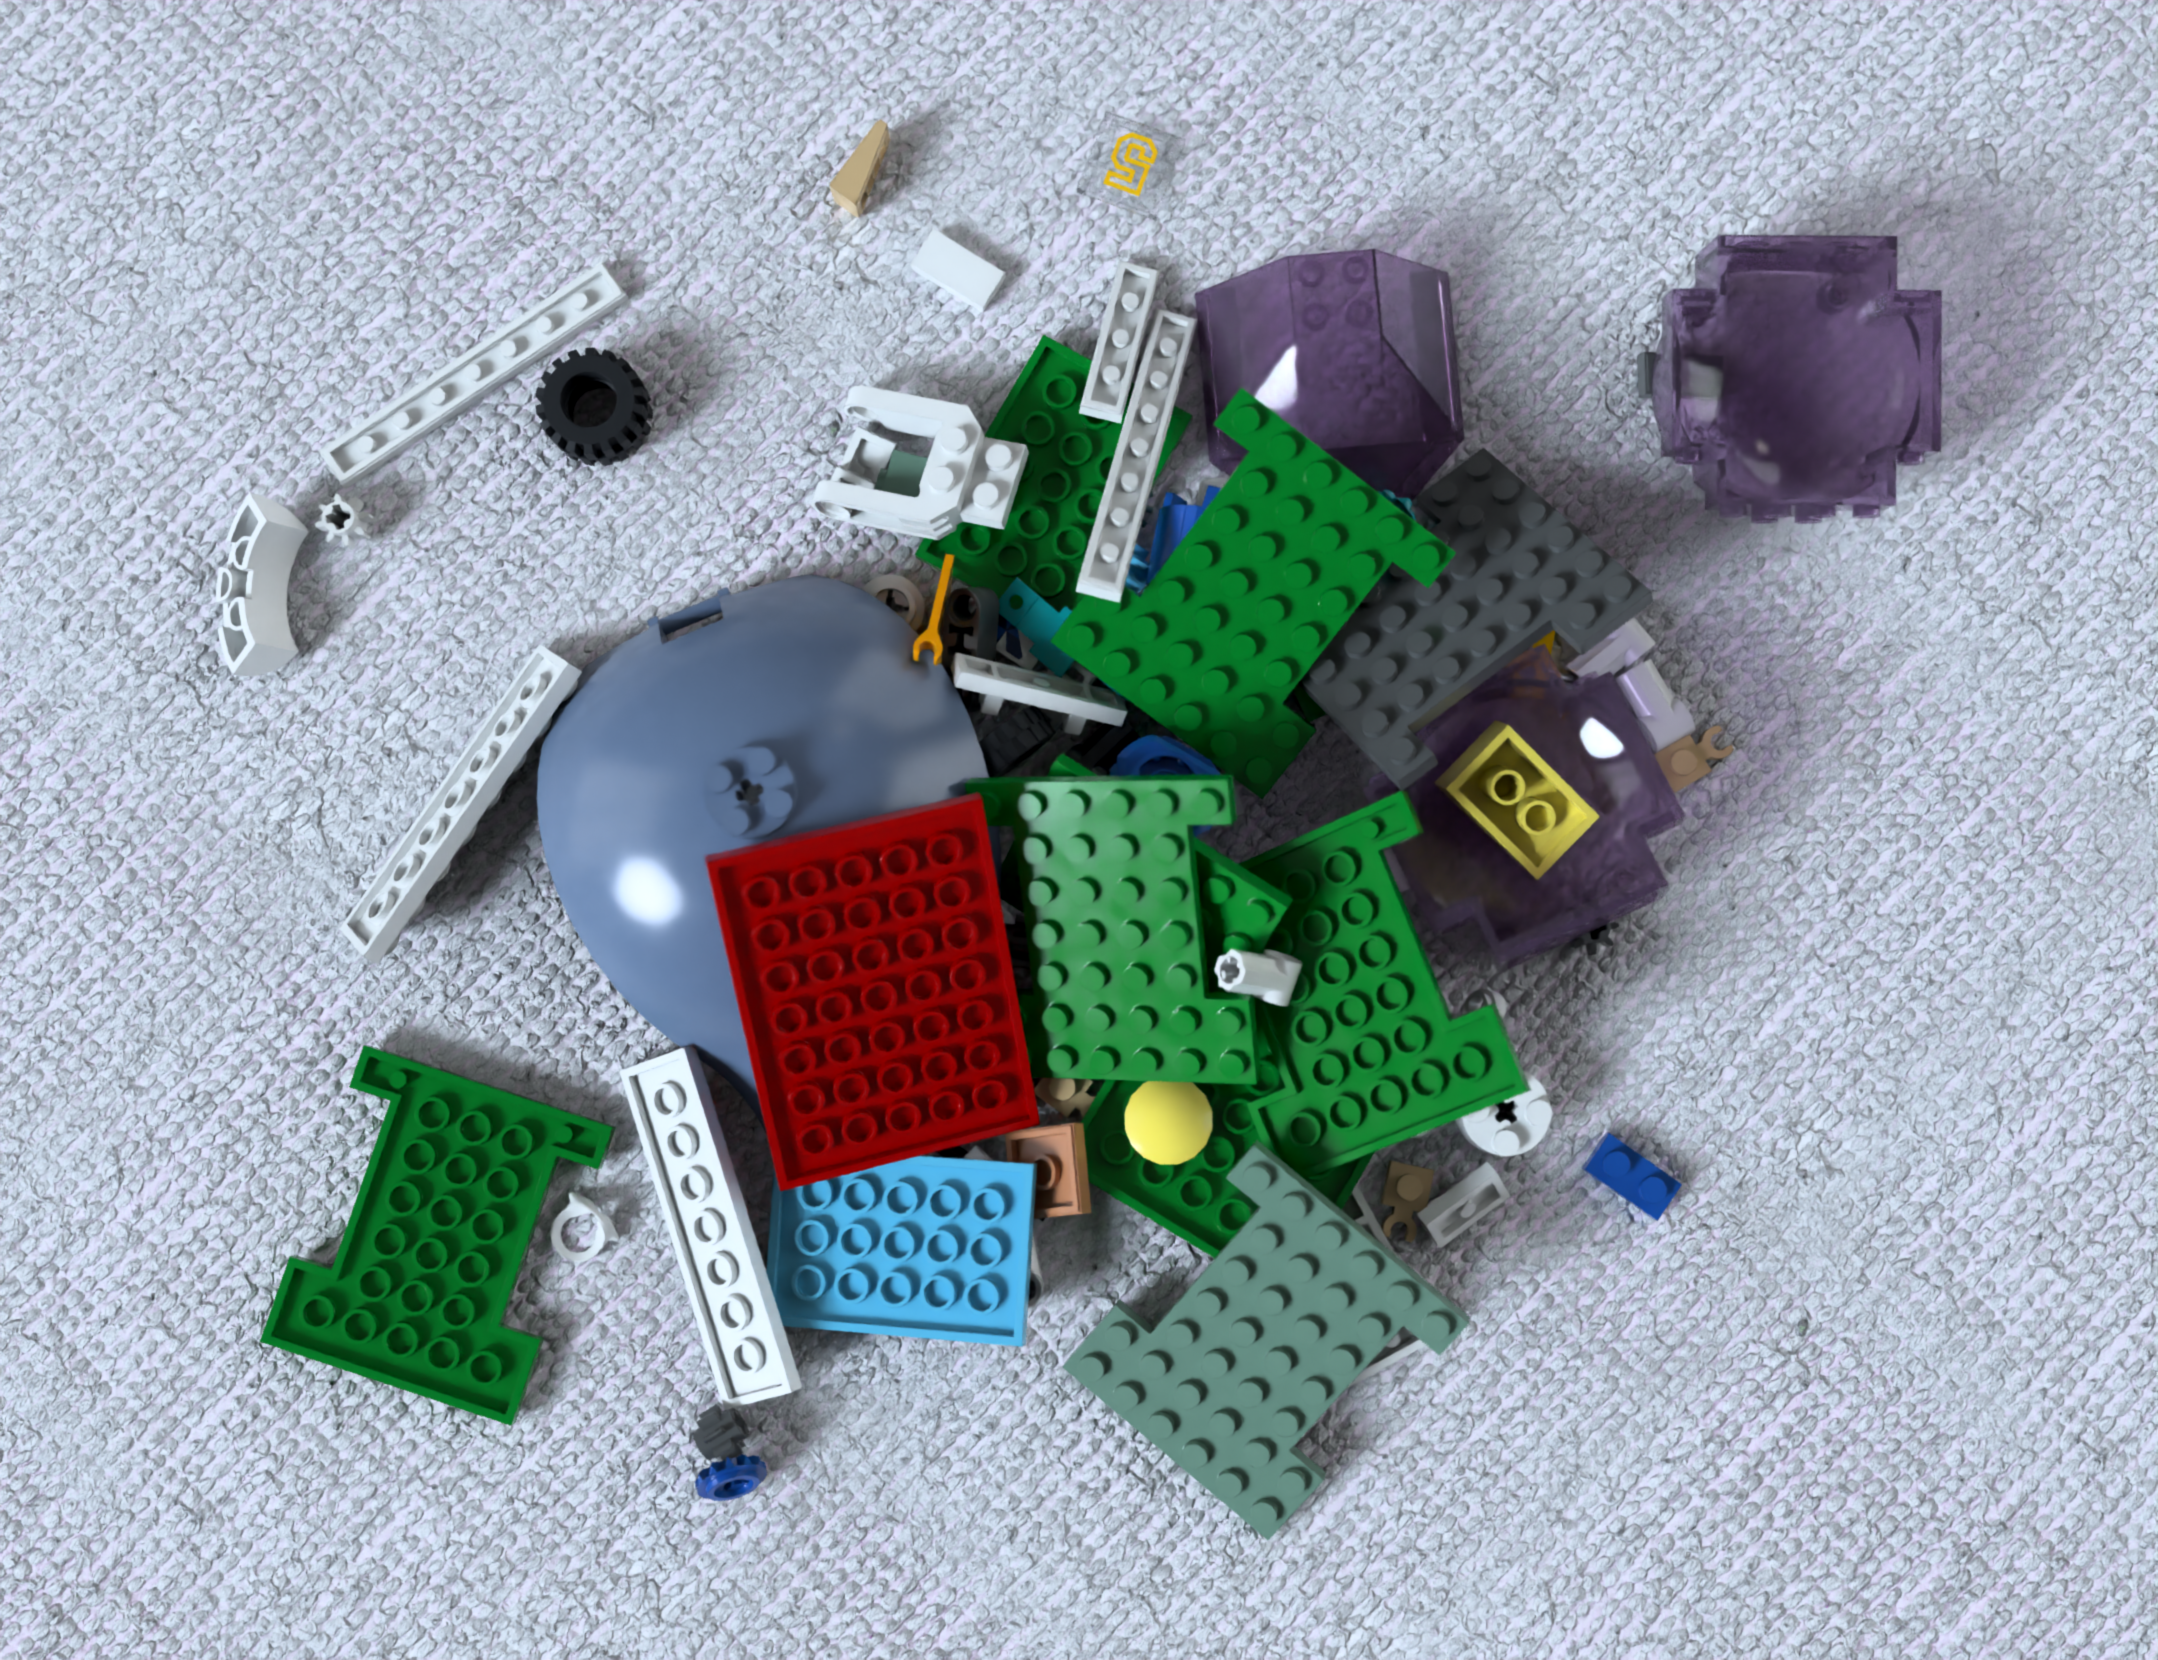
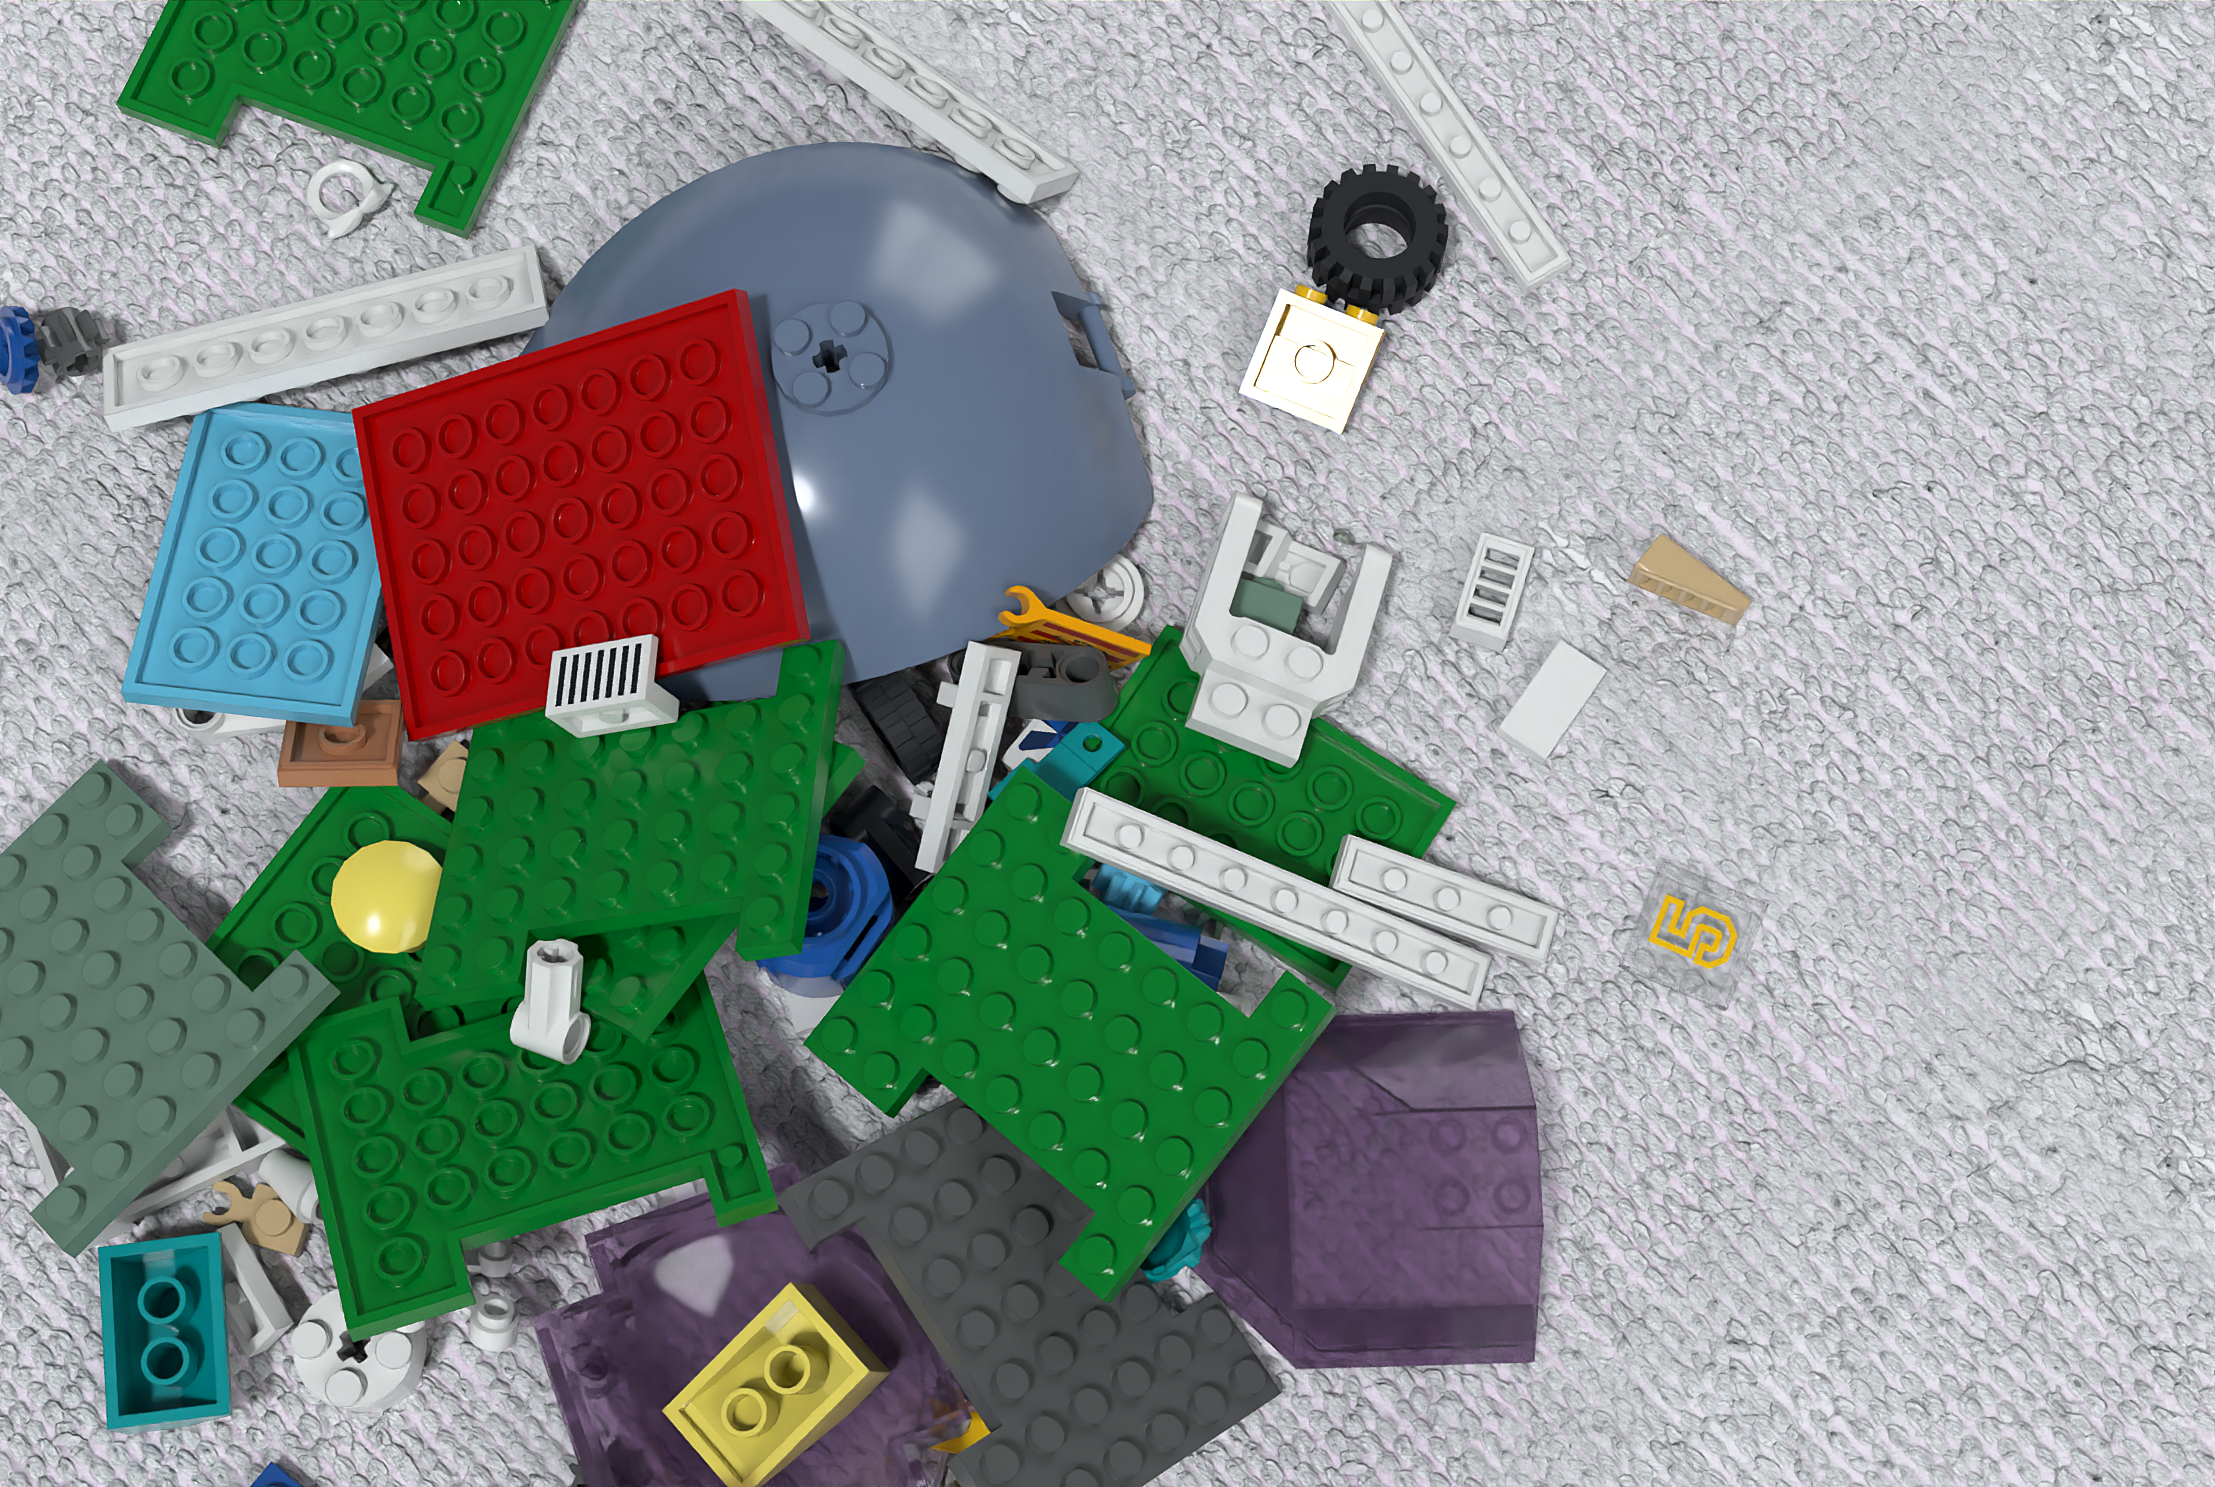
camera: 90 degrees right, 10 degrees down
(693, 452) = (1313, 358): none -> plate
(891, 303) = (1479, 630): none -> white slope
(1009, 956) = (608, 688): none -> white panel
(1387, 1168) = (293, 1183): none -> white cone
(1504, 1252) = (164, 1333): none -> teal slope

